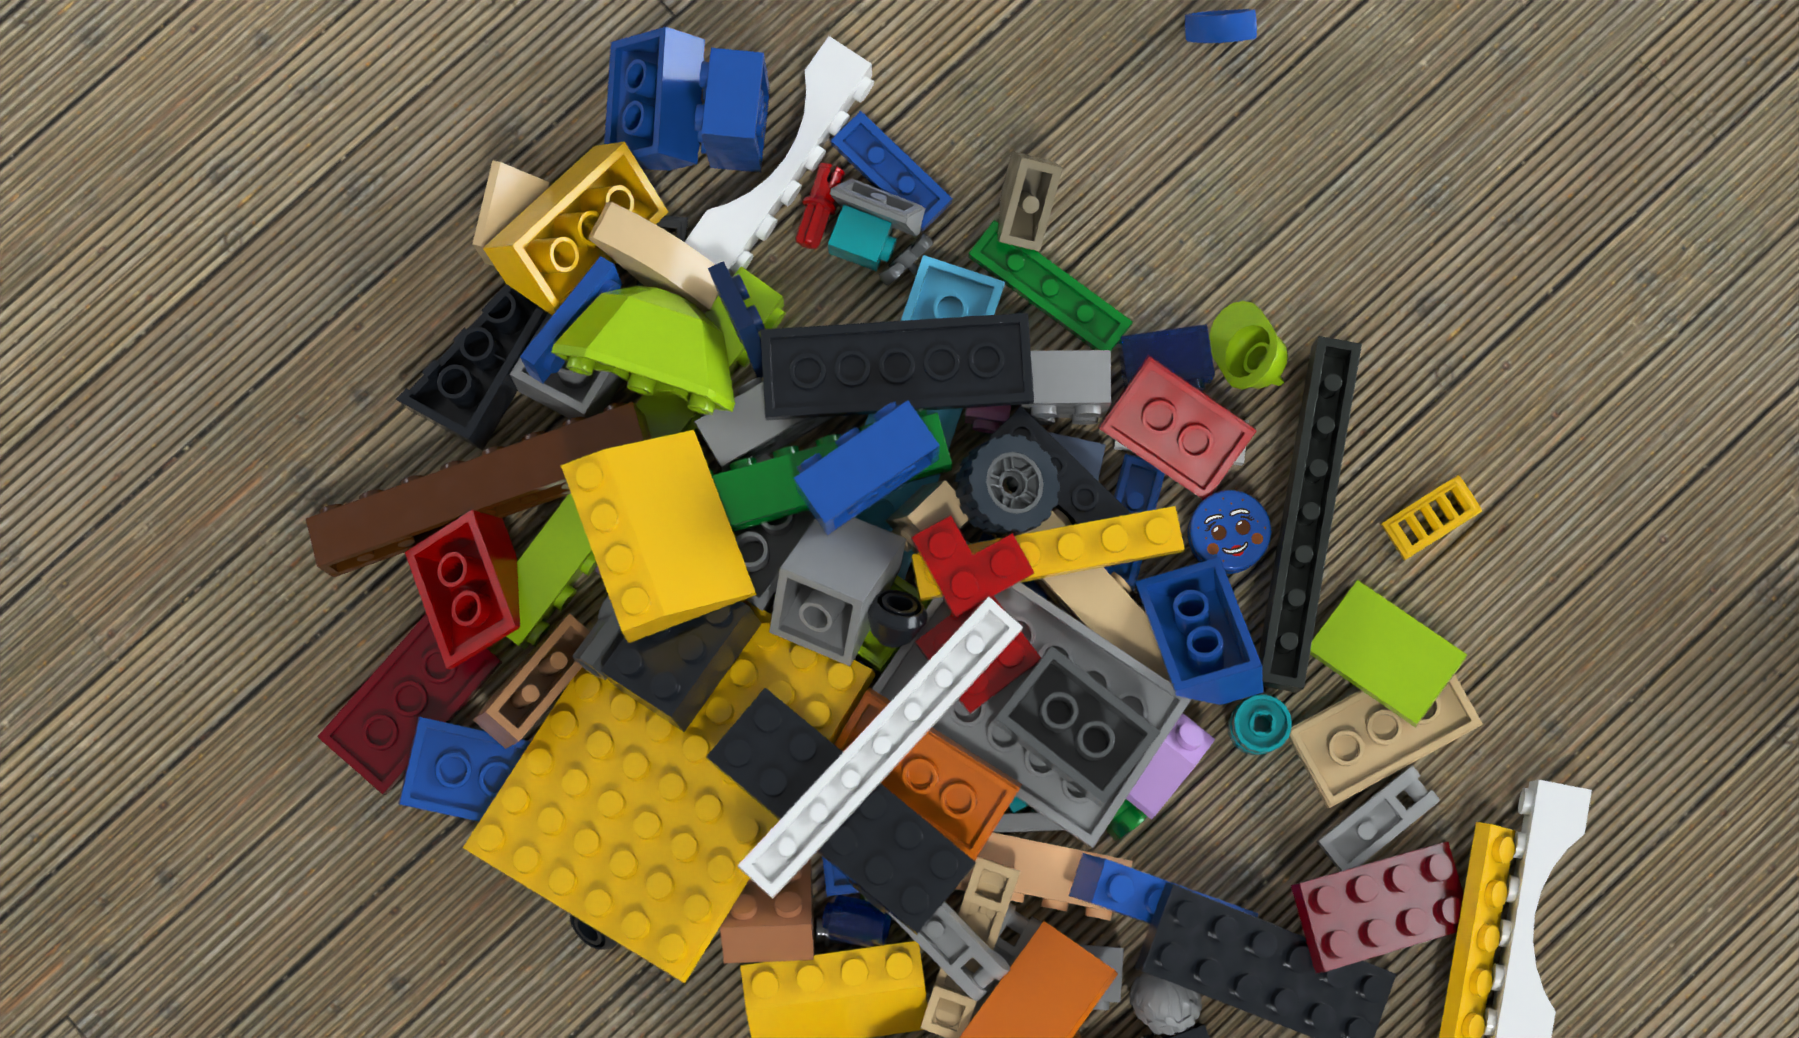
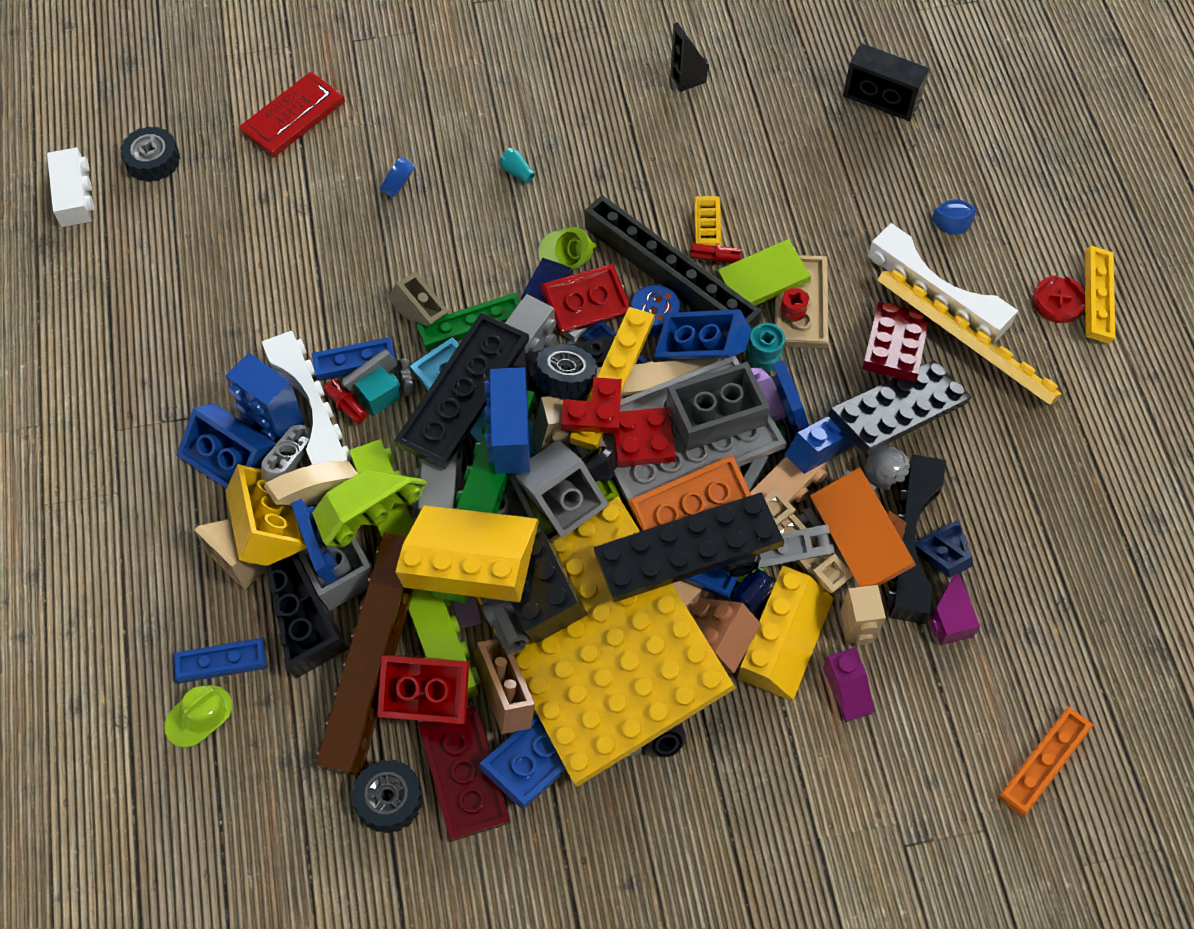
camera: 60 degrees left, 20 degrees down
(294, 327) = (197, 715): none -> lime piece
(326, 601) = (370, 790): none -> black wheel
(375, 303) = (220, 660): none -> blue tile
(702, 175) = (286, 443): none -> light grey beam
(744, 320) = (377, 456): dark blue wing -> none
(880, 748) = (669, 503): white plate -> none
(1173, 820) = (789, 398): none -> blue plate
(1347, 726) = (795, 311): none -> red wheel
(1355, 179) = (515, 164): none -> teal cone
(1377, 821) = (848, 326): light grey plate -> none
(1383, 559) = (715, 253): none -> red axle
(1682, 873) = (954, 216): none -> blue hat
(1707, 316) = (687, 64): none -> black slope

